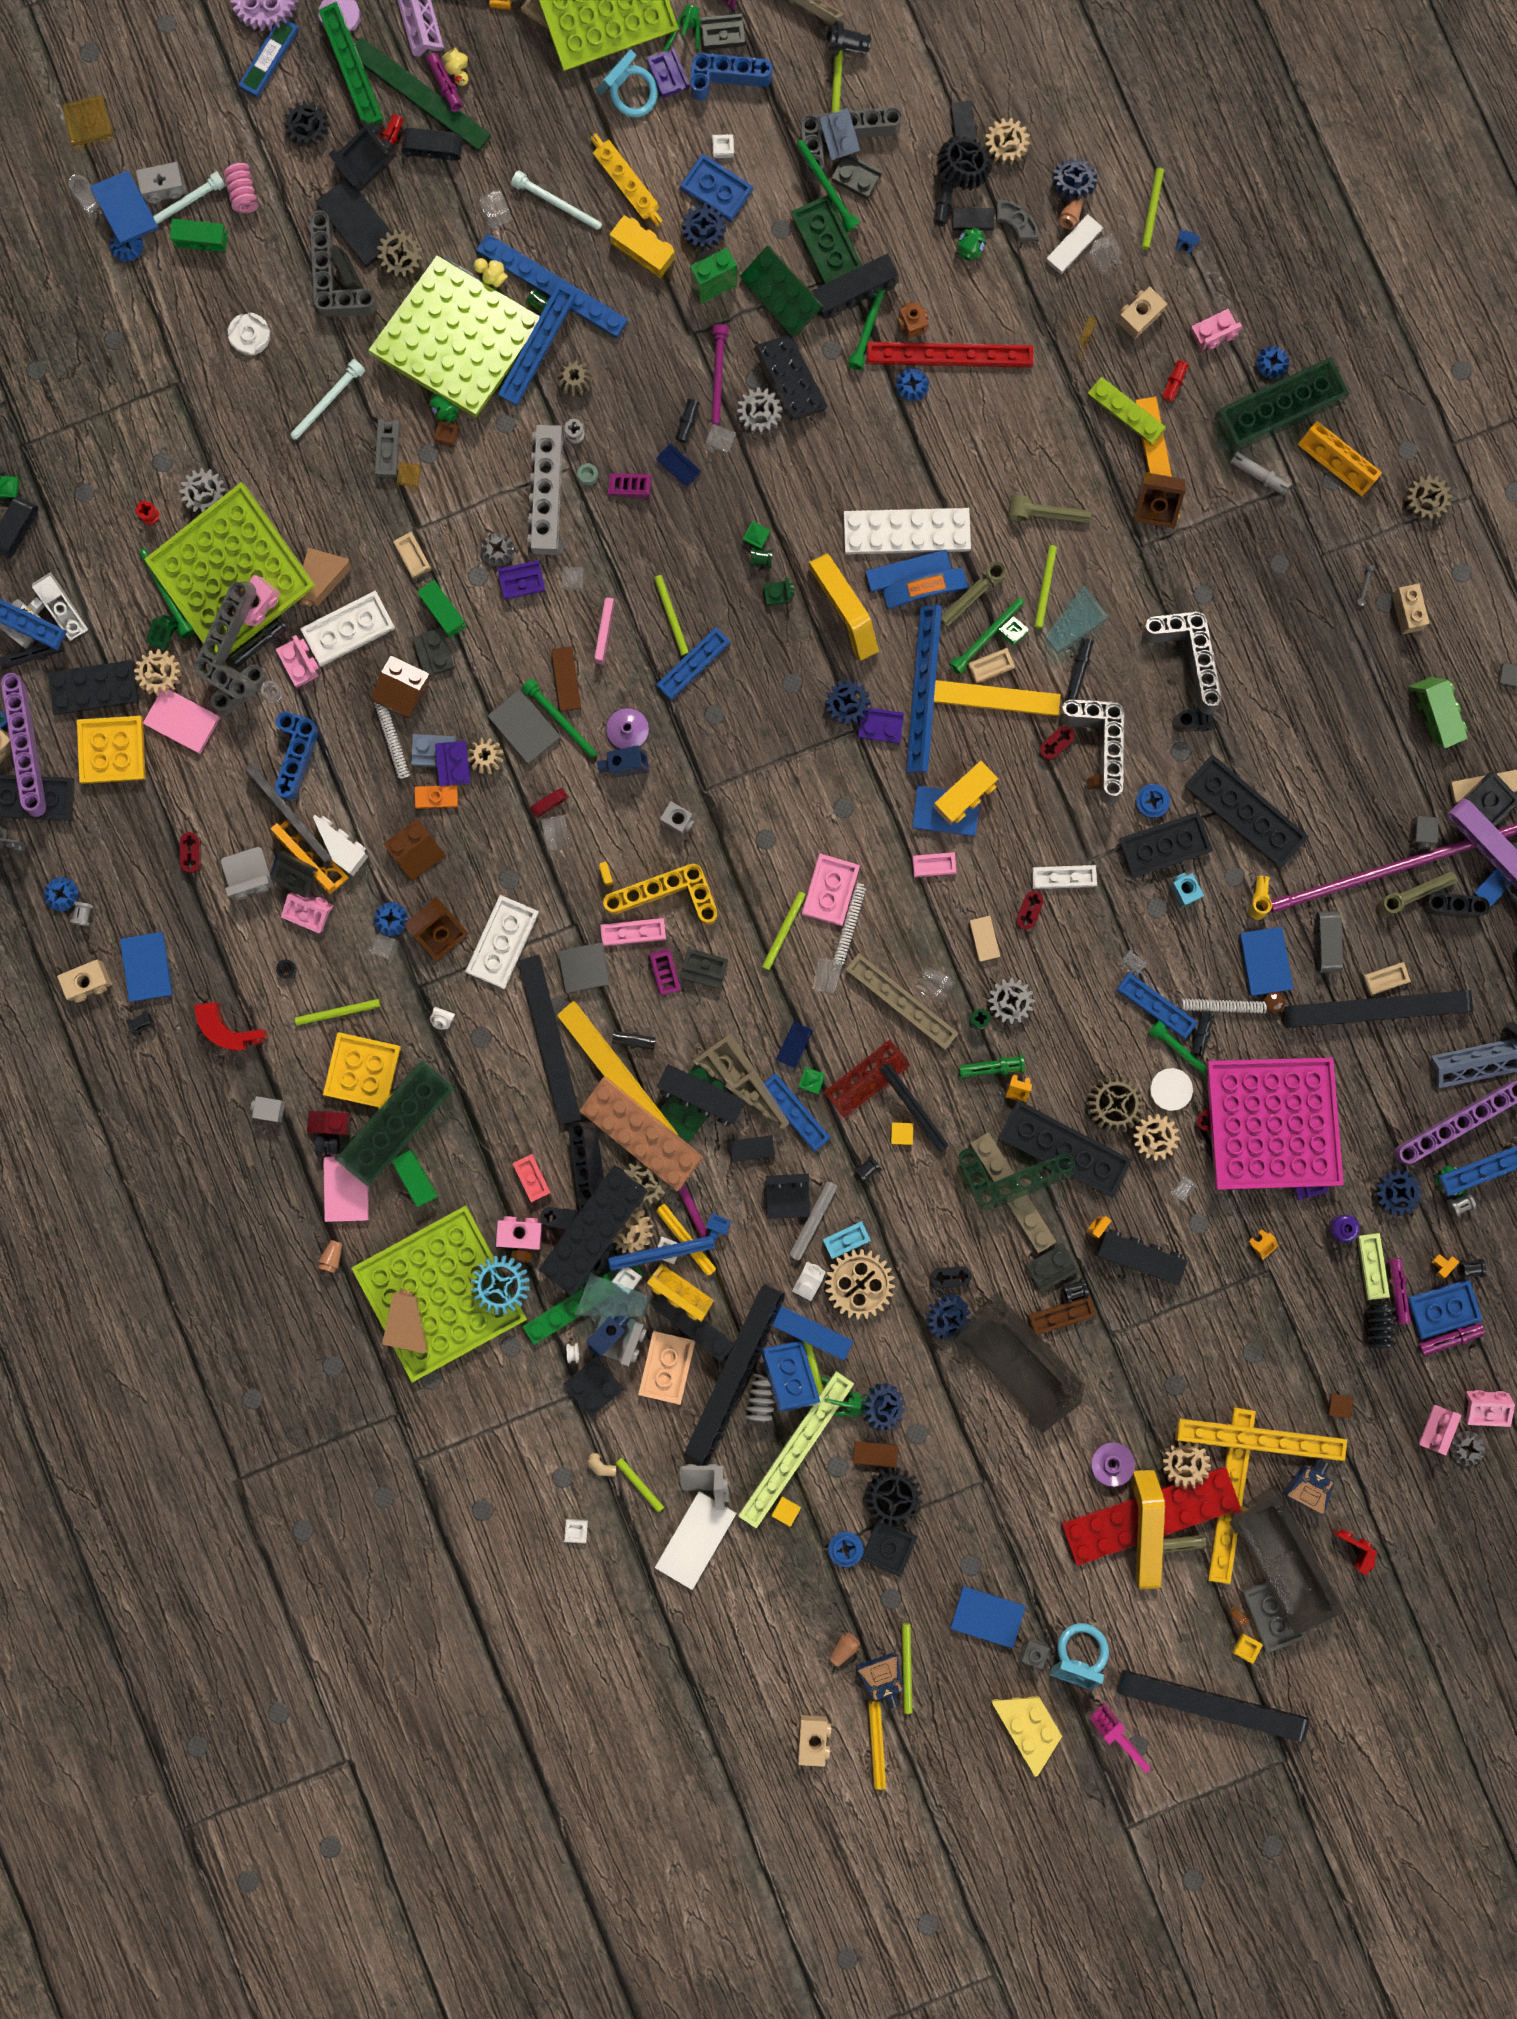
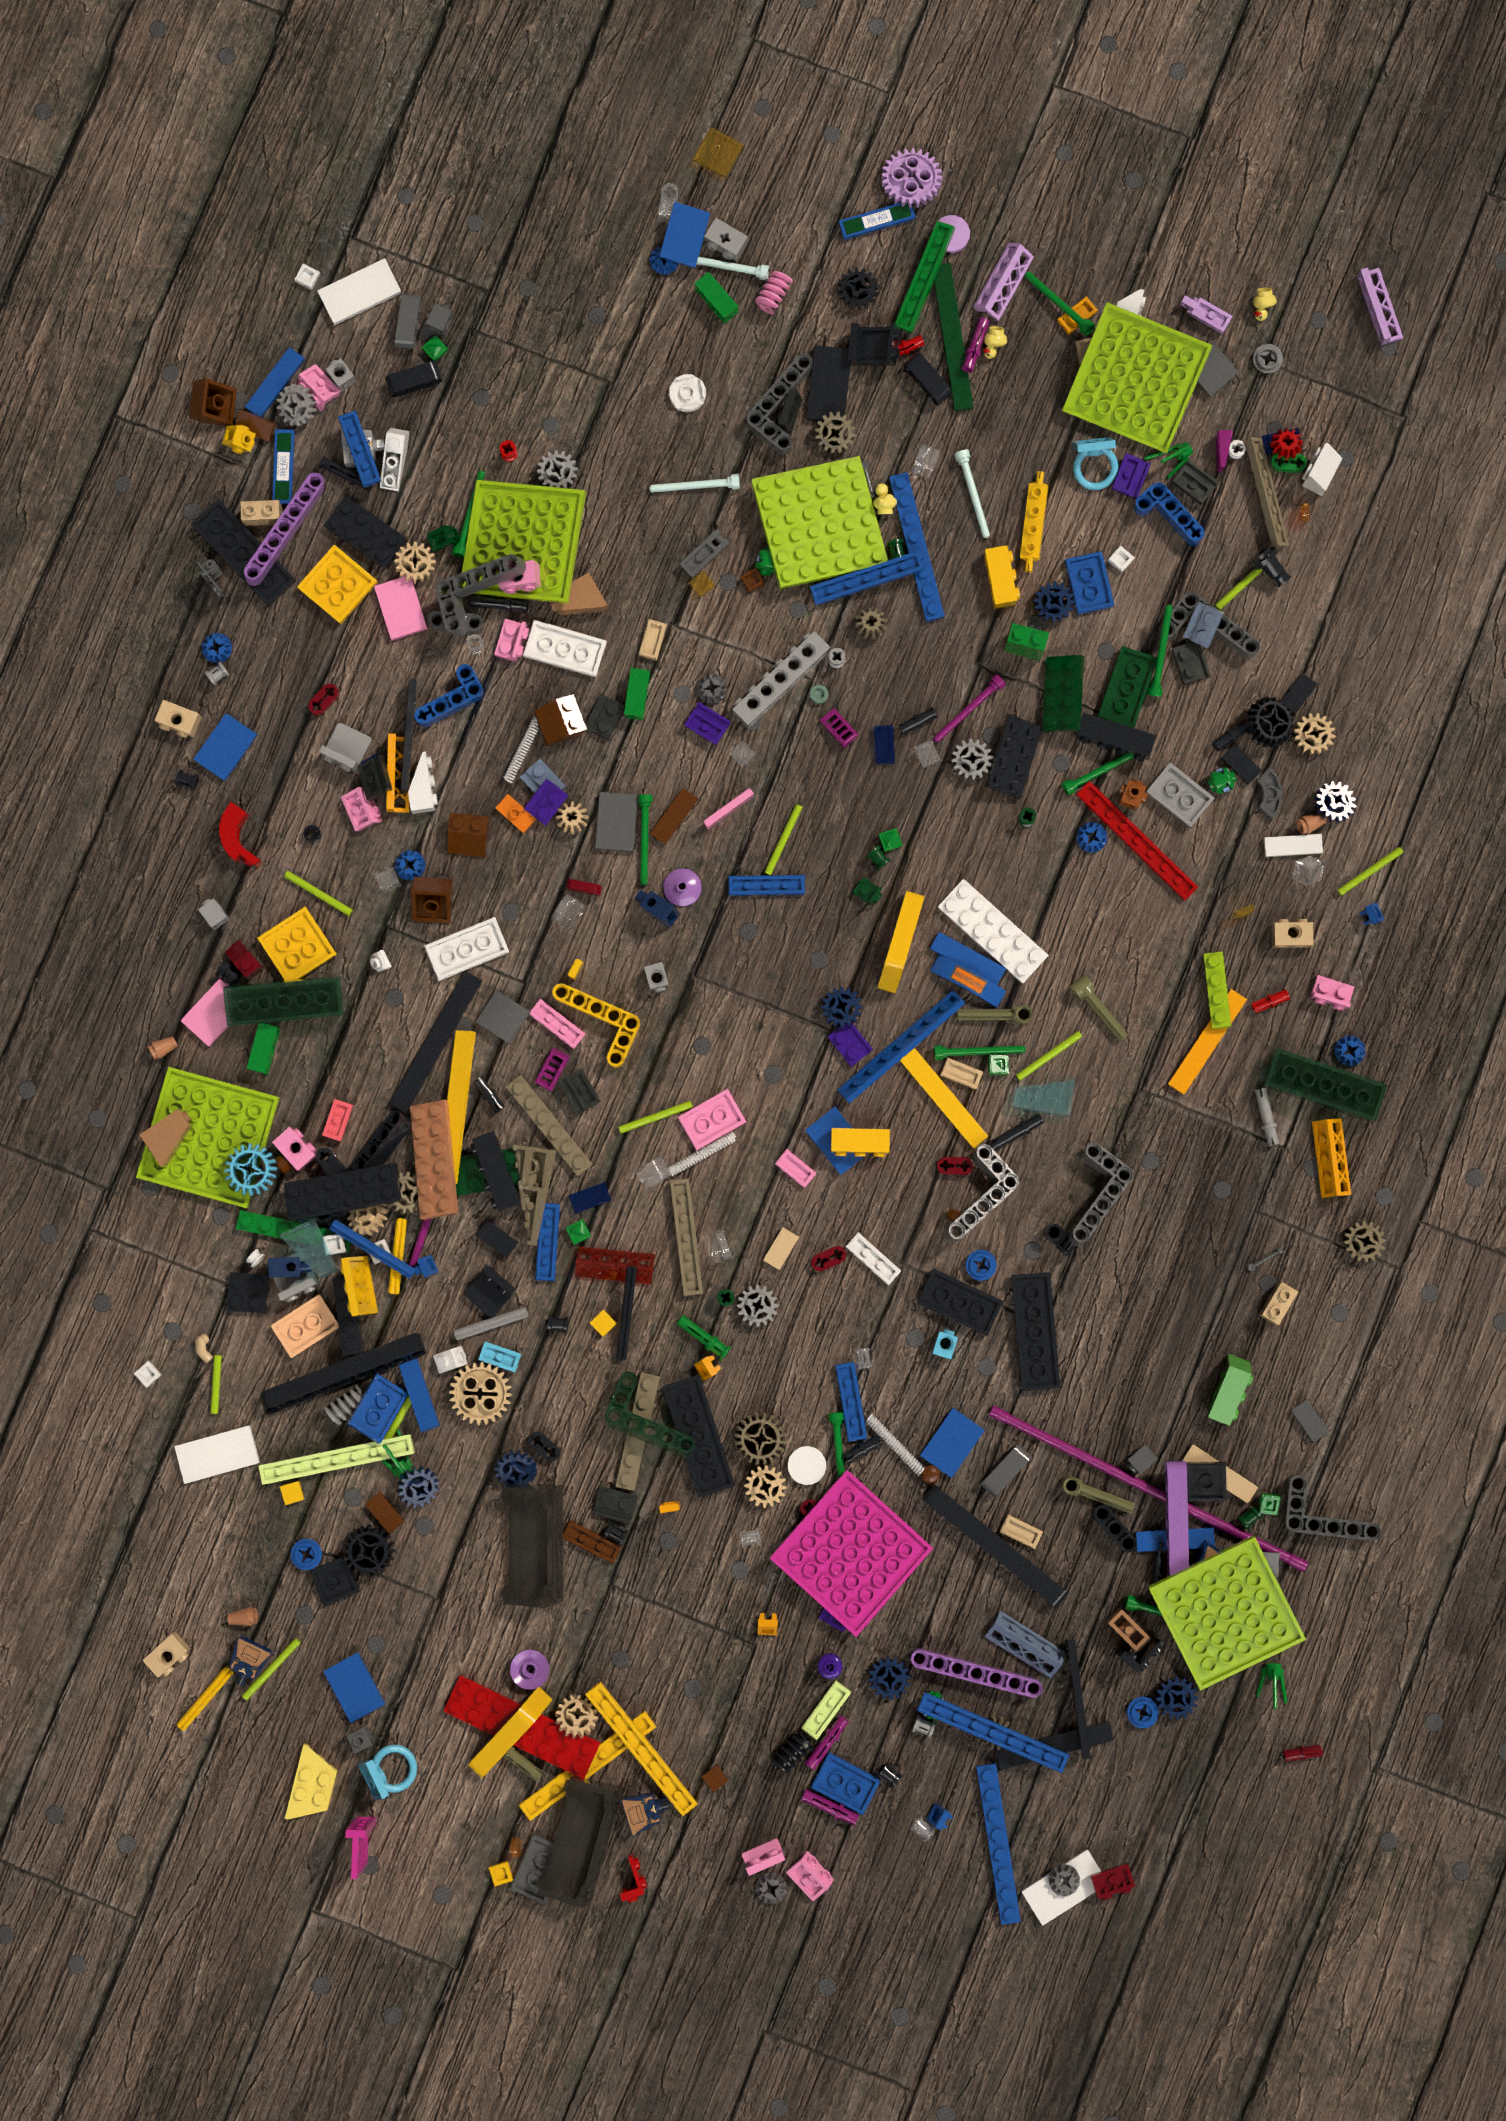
camera: 55 degrees right, 0 degrees up
(706, 1018) = (549, 1125): none -> dark tan plate
(706, 1479) = (261, 1421): light grey bracket -> none
(851, 420) = (1025, 823): none -> dark green bush
(949, 286) = (1180, 795): none -> light grey plate
(1141, 1257) = (679, 1555): black brick -> none
(1159, 500) = (1179, 1070): reddish brown slope -> none
(1213, 1705) = (442, 1887): black beam -> none
(1260, 897) = (989, 1397): yellow pin -> none
(1444, 1266) = (872, 1756): light orange tile -> none

